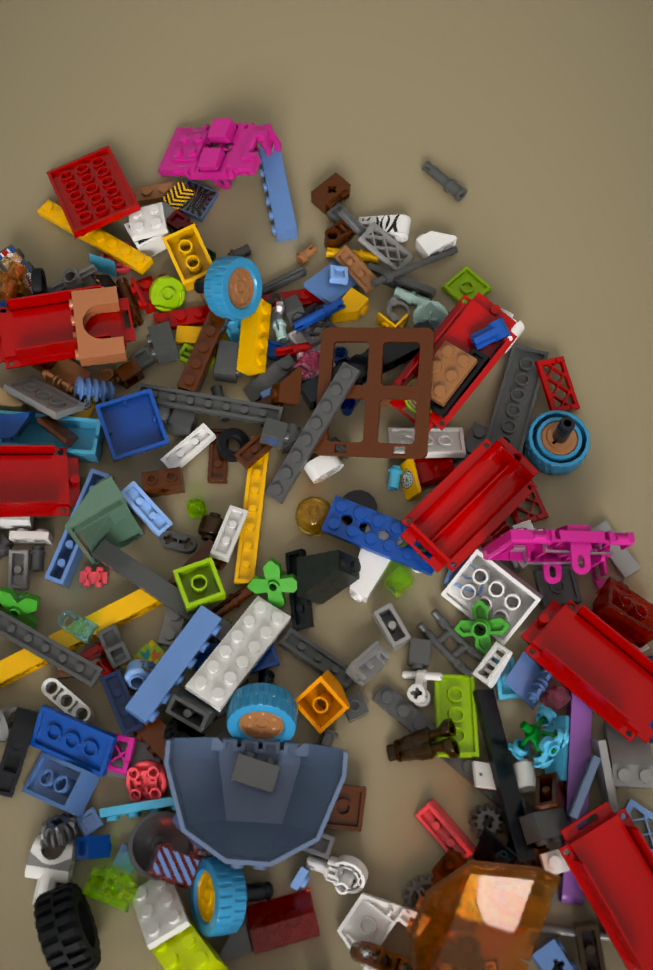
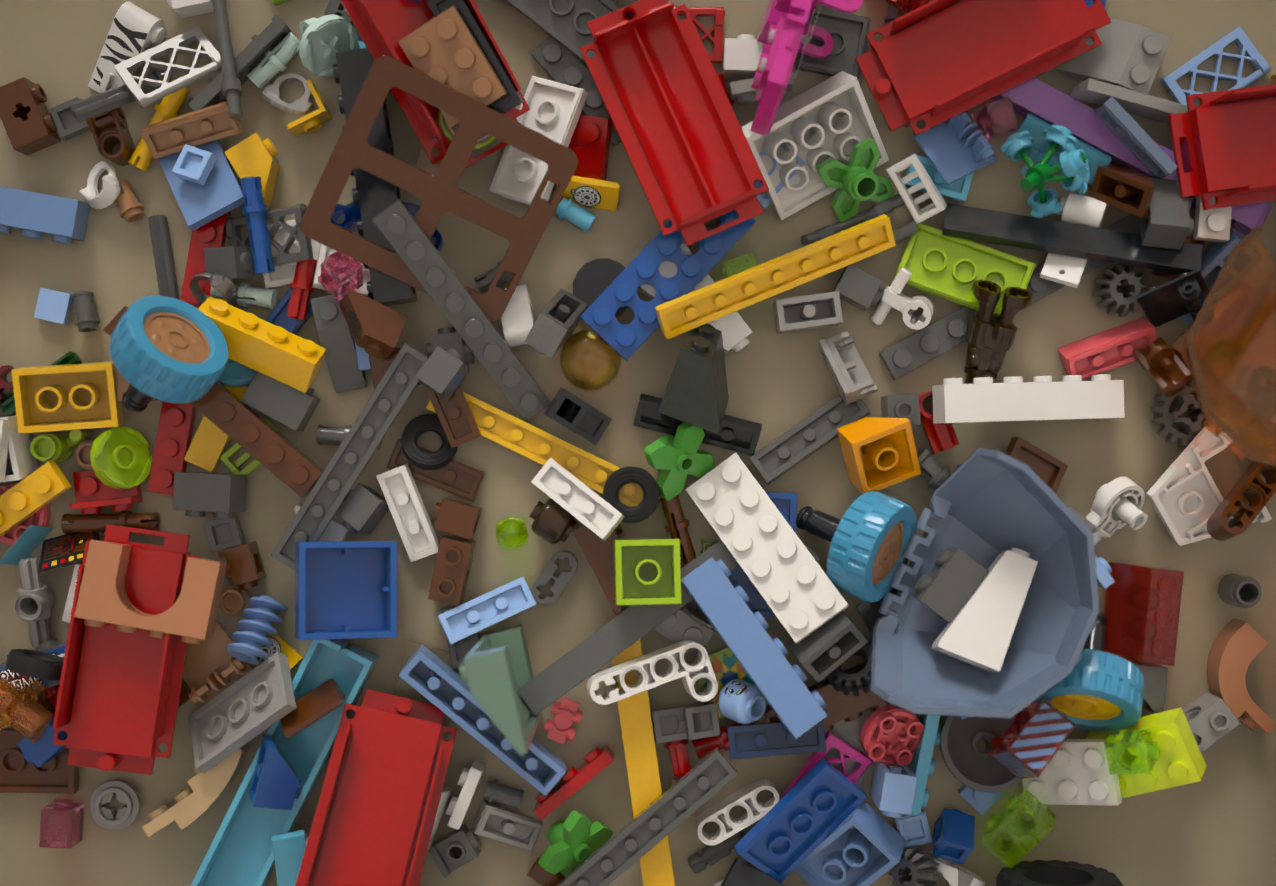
camera: 70 degrees left, 20 degrees up
(35, 696) = (713, 854): none -> dark grey axle
(58, 595) = (573, 780): none -> red plate
(80, 628) = (641, 766): clear light blue piece -> none
(111, 792) = (893, 789): none -> light blue brick
(135, 612) = (649, 679): none -> white beam
(162, 262) = (57, 445): none -> lime piece
(179, 931) = (1122, 761): none -> clear neon green brick
(194, 475) = (456, 518): none -> reddish brown brick
(236, 238) = (53, 306): none -> light blue tile
(243, 803) = (988, 618): none -> white slope
(248, 575) = (647, 483): none -> black tyre
(279, 516) = (578, 416): none -> black brick
(309, 239) = (110, 186): none -> white piece
(326, 484) = (556, 323): none -> flat silver brick
(354, 734) = (939, 436): none -> red piece
(392, 787) = (1028, 400): none -> white brick
(405, 597) = (775, 276): none -> yellow plate

